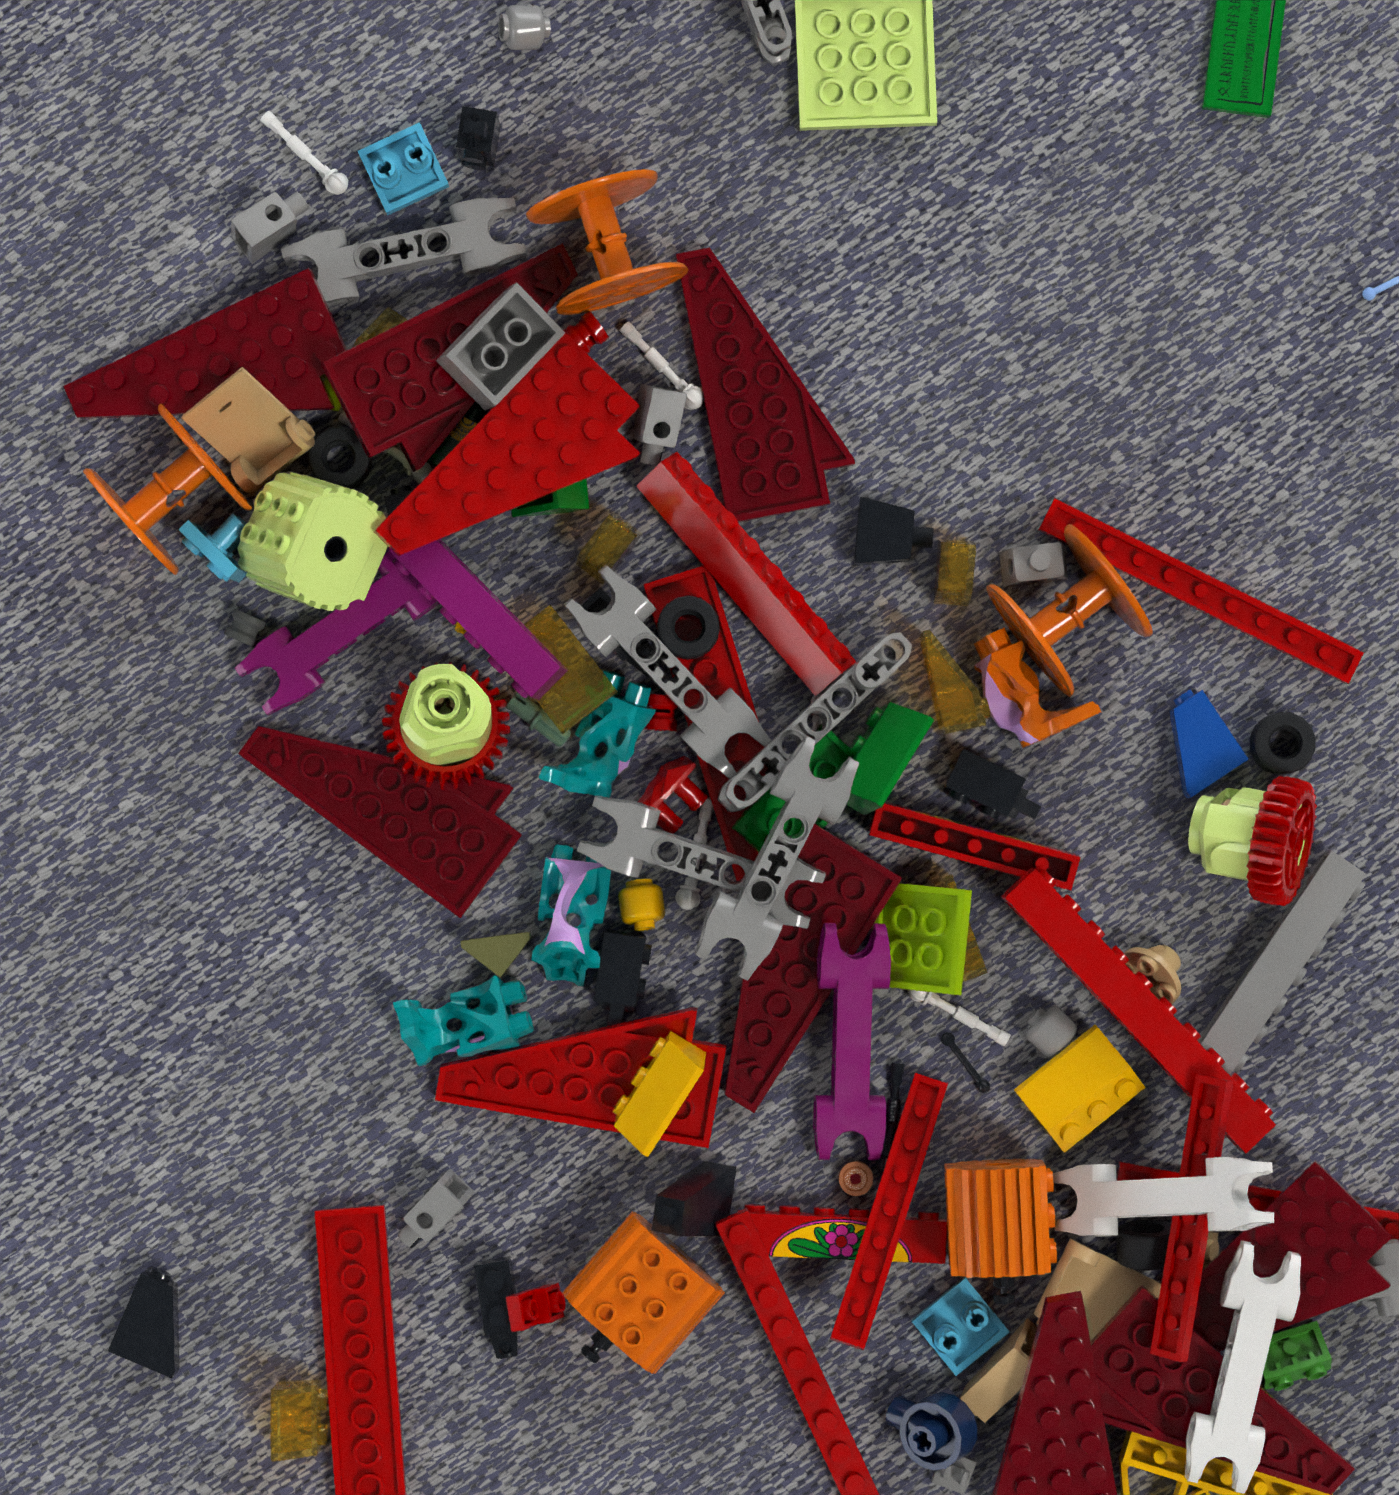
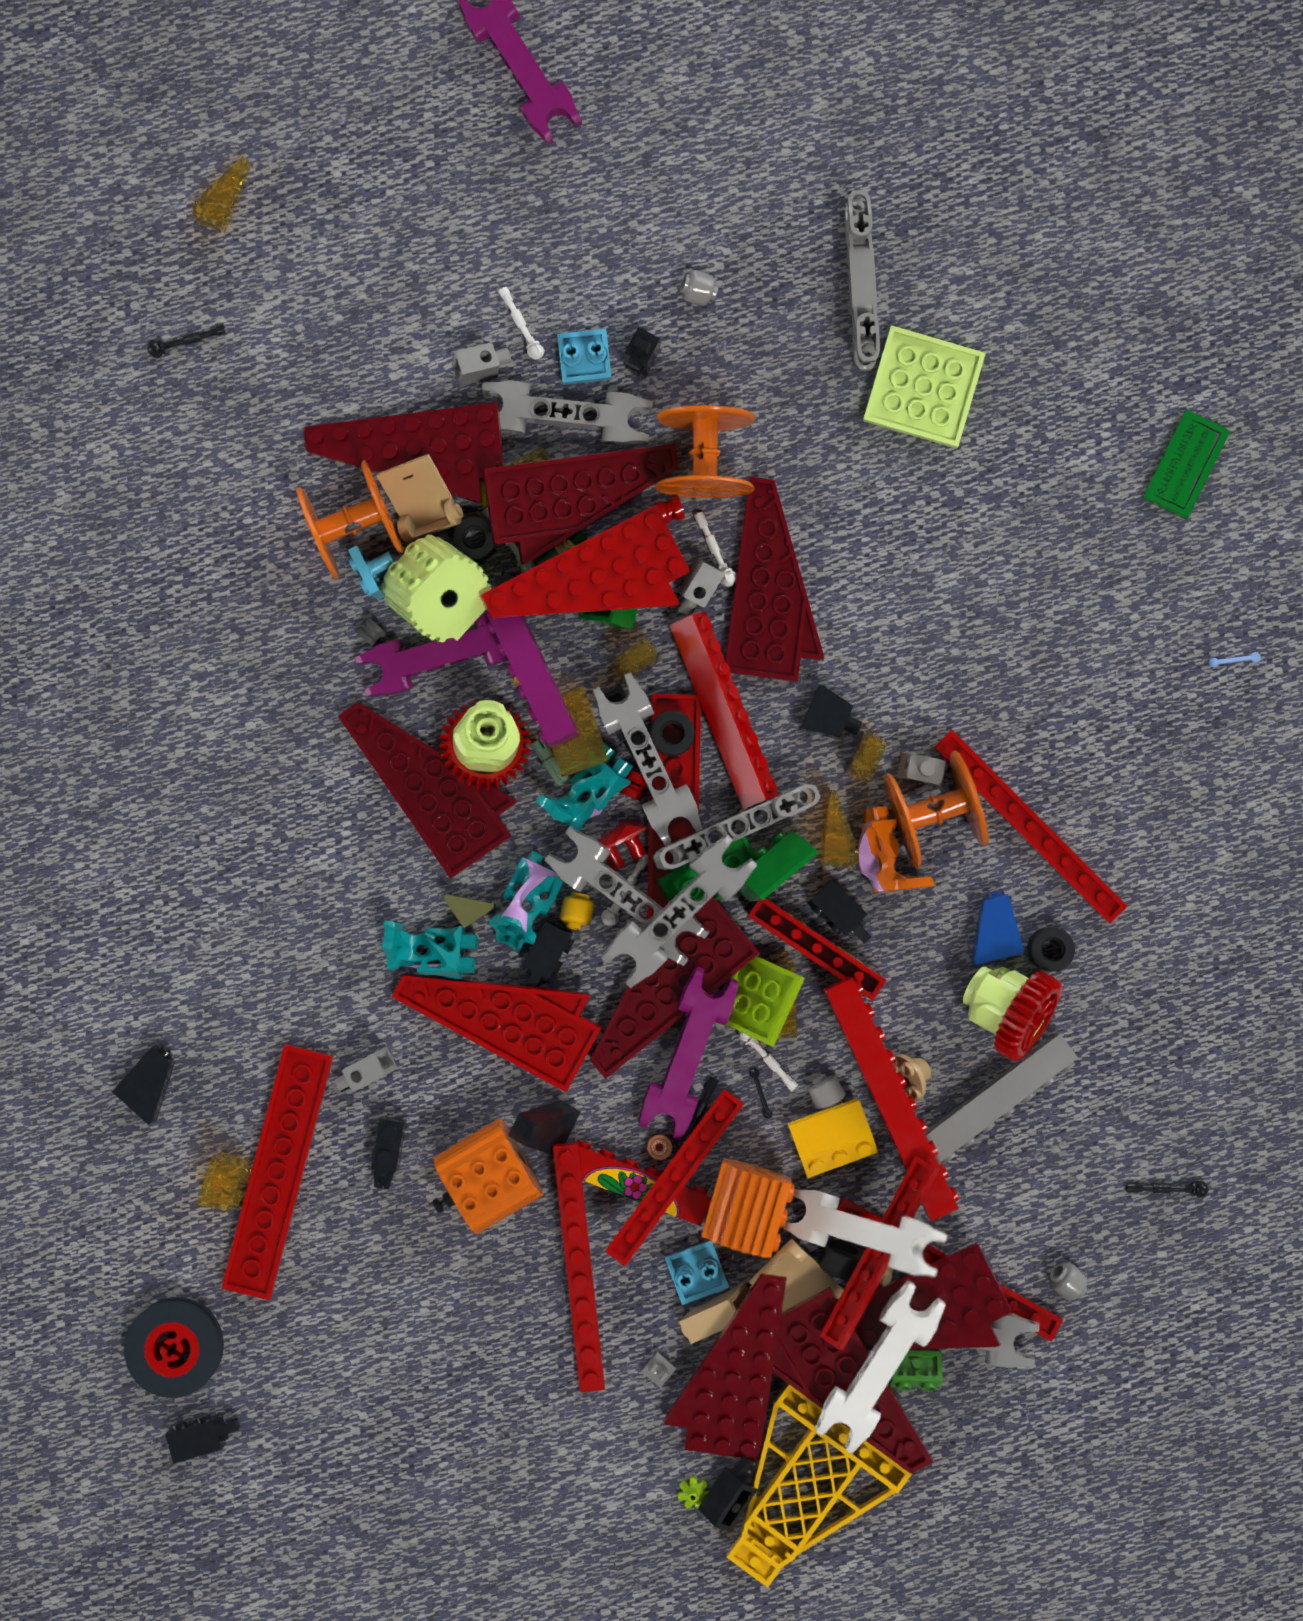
camera: 20 degrees right, 0 degrees up
(500, 346) = (609, 499): light grey brick -> none
(535, 1306) = (411, 1160): red slope -> none
(658, 1091) = (545, 1043): yellow slope -> none
(934, 1429) = (655, 1336): dark blue piece -> none

